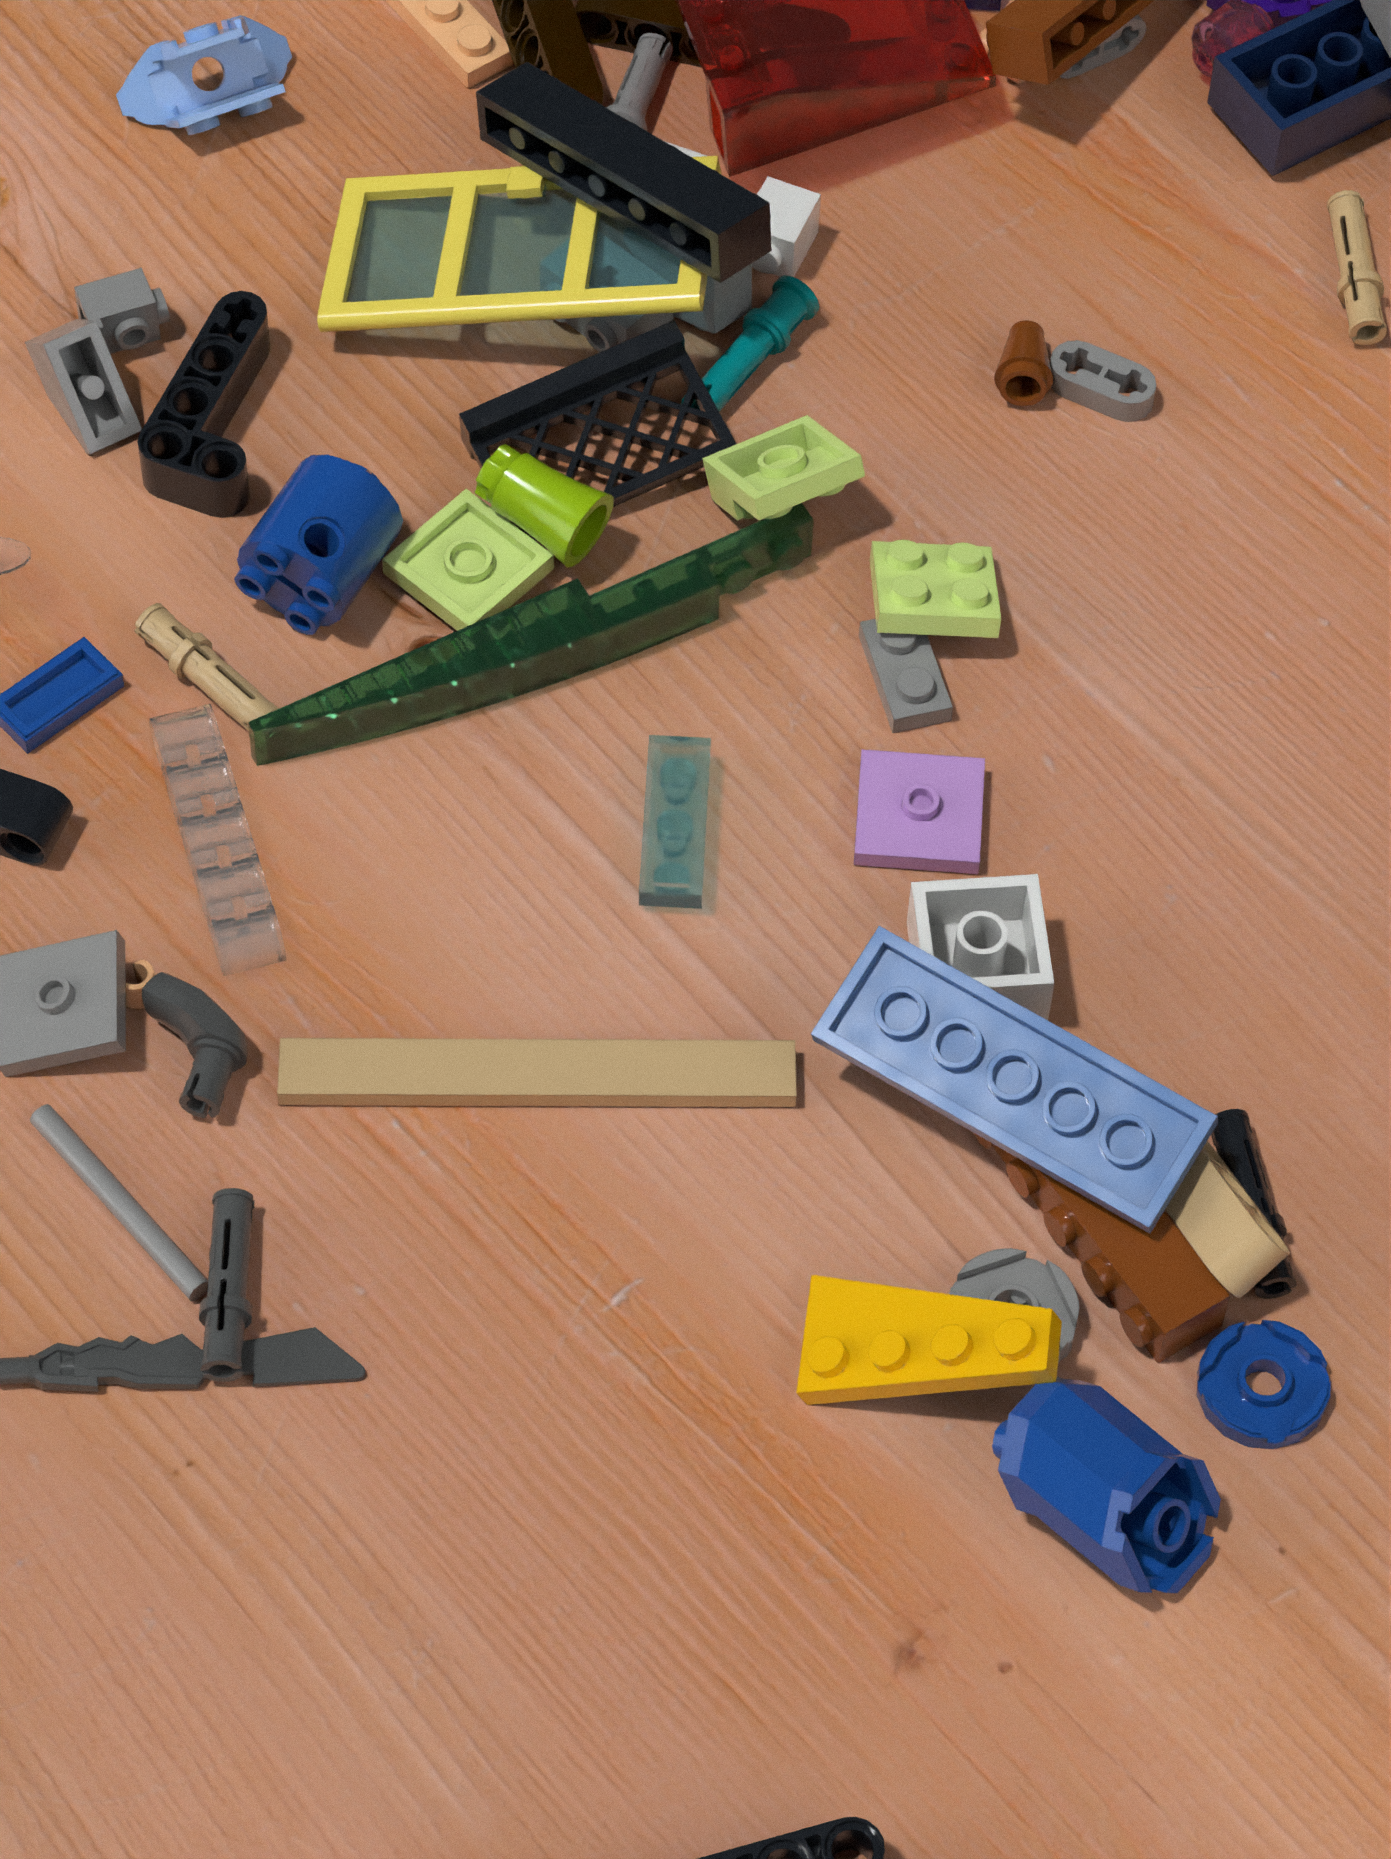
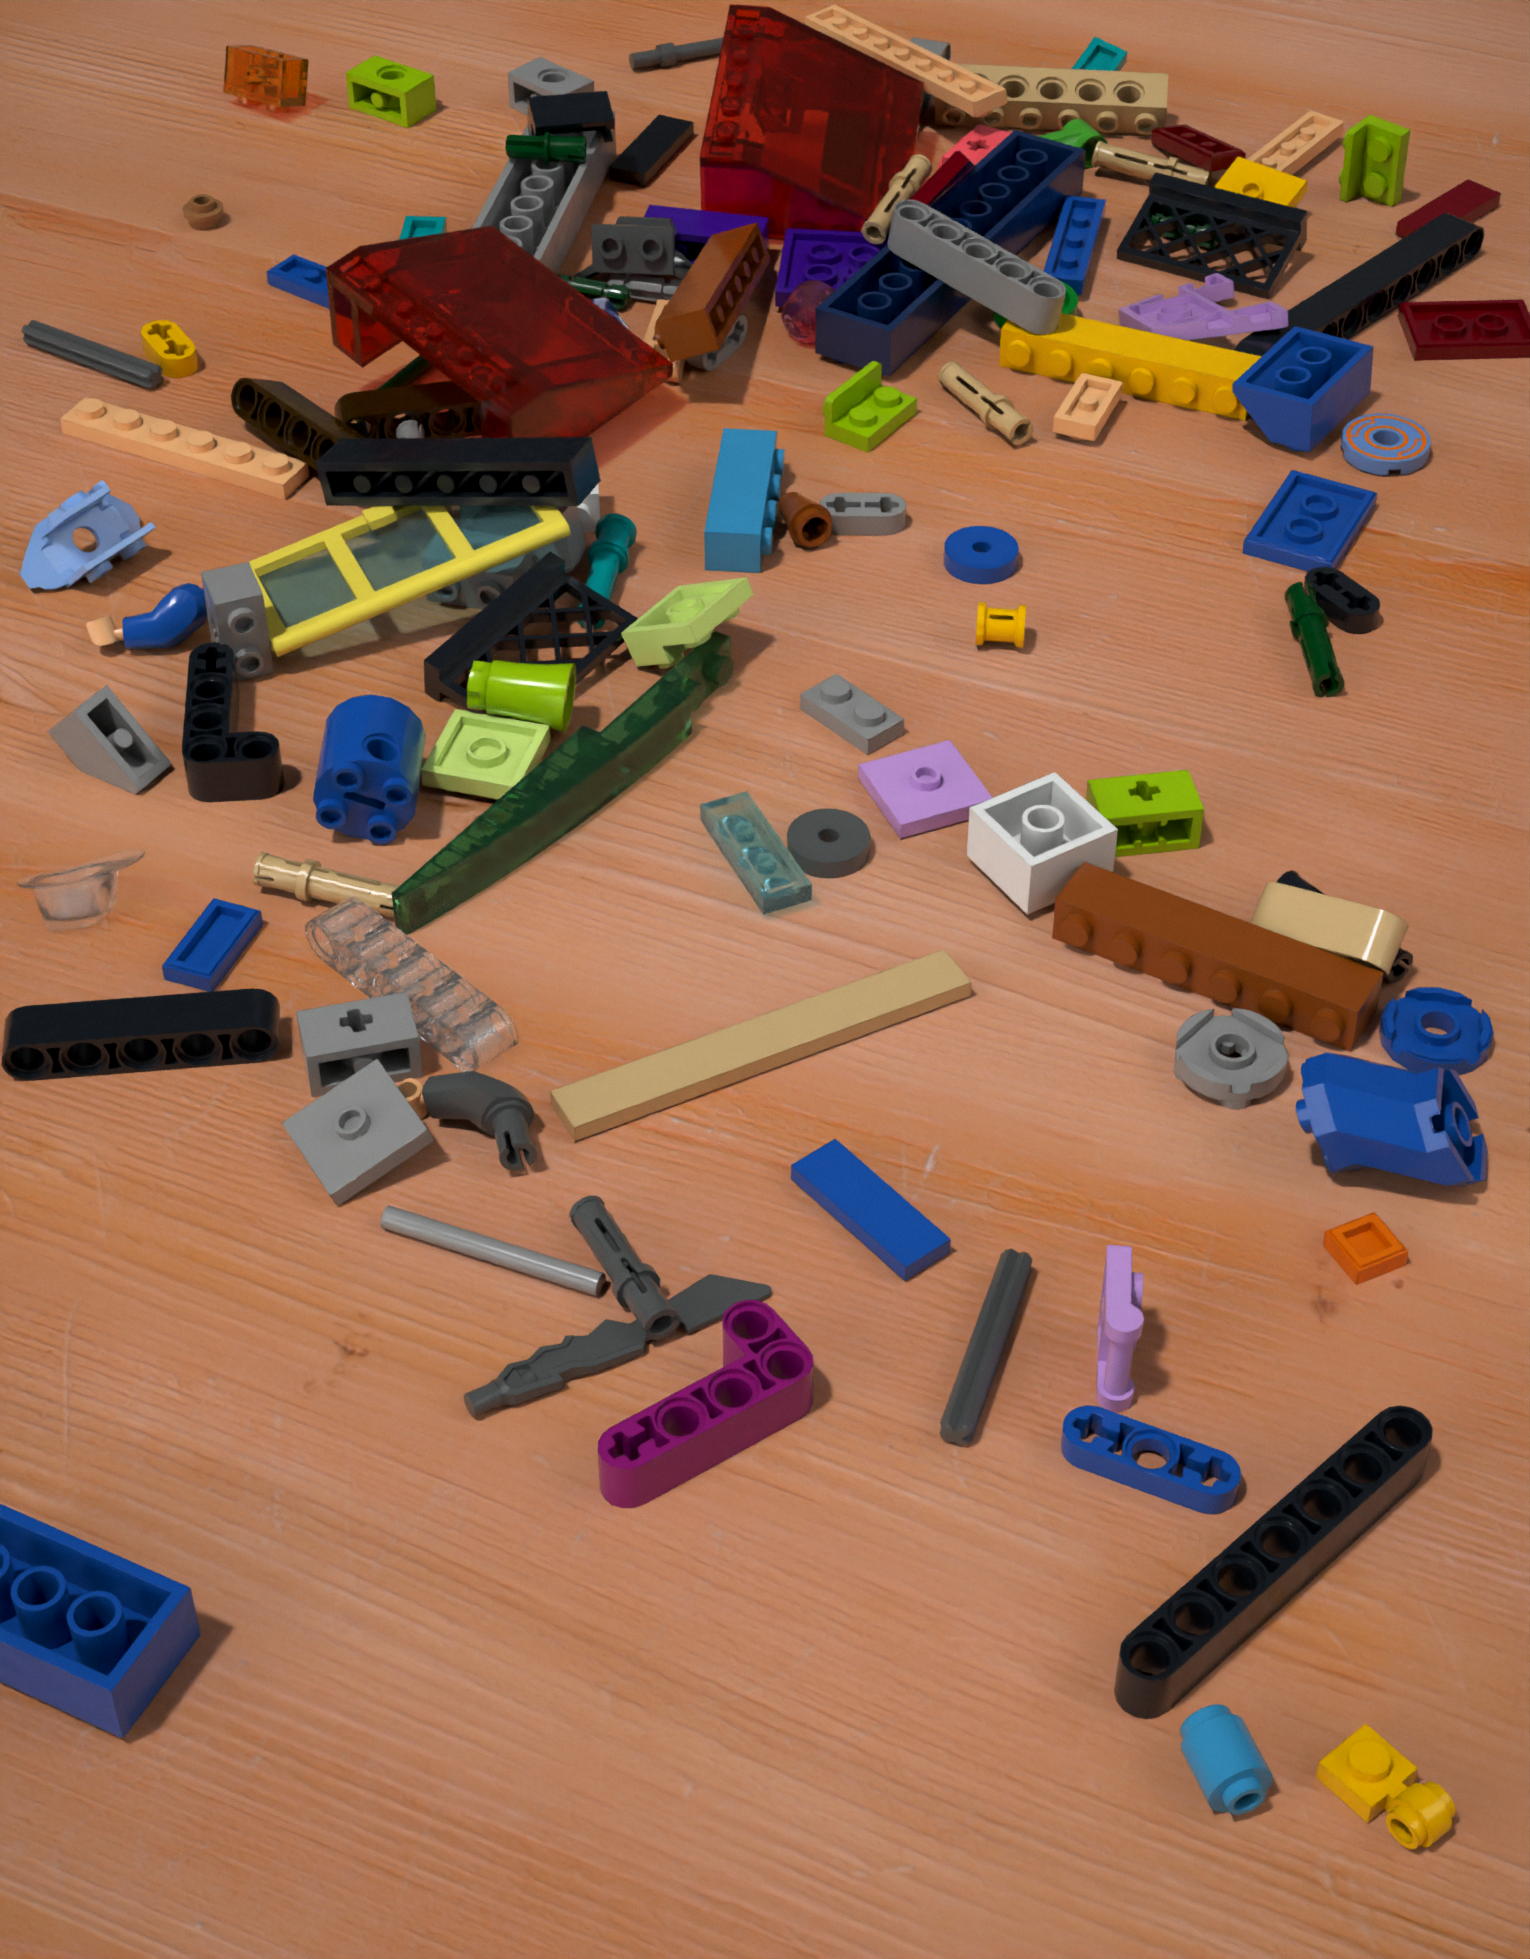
camera: 25 degrees left, 15 degrees down
(123, 309) = (125, 680): light grey brick -> none
(123, 890) = (353, 1034): none -> light grey brick
(201, 1483) = (753, 1396): none -> magenta beam
(238, 232) = (167, 626): none -> blue arm
(292, 272) = (239, 618): none -> light grey brick
(517, 1327) = (870, 1209): none -> blue tile
(528, 1542) = (985, 1347): none -> dark grey axle
(646, 1591) = (1118, 1329): none -> lavender plate
(649, 1775) = (1160, 1482): none -> blue beam
(761, 863) = (829, 843): none -> dark grey piece
(911, 1342) = (1186, 1087): yellow wing -> none
(934, 589) = (841, 654): yellowish green plate -> none
(968, 308) = (743, 501): none -> dark azure brick
(994, 1612) = (1365, 1248): none -> orange tile
(1015, 1079) = (1139, 890): medium blue plate -> none
(1129, 956) = (1150, 811): none -> lime brick
(1148, 618) = (1000, 624): none -> yellow bush
(1202, 520) = (981, 554): none -> blue piece
(1206, 222) = (865, 411): none -> lime bracket

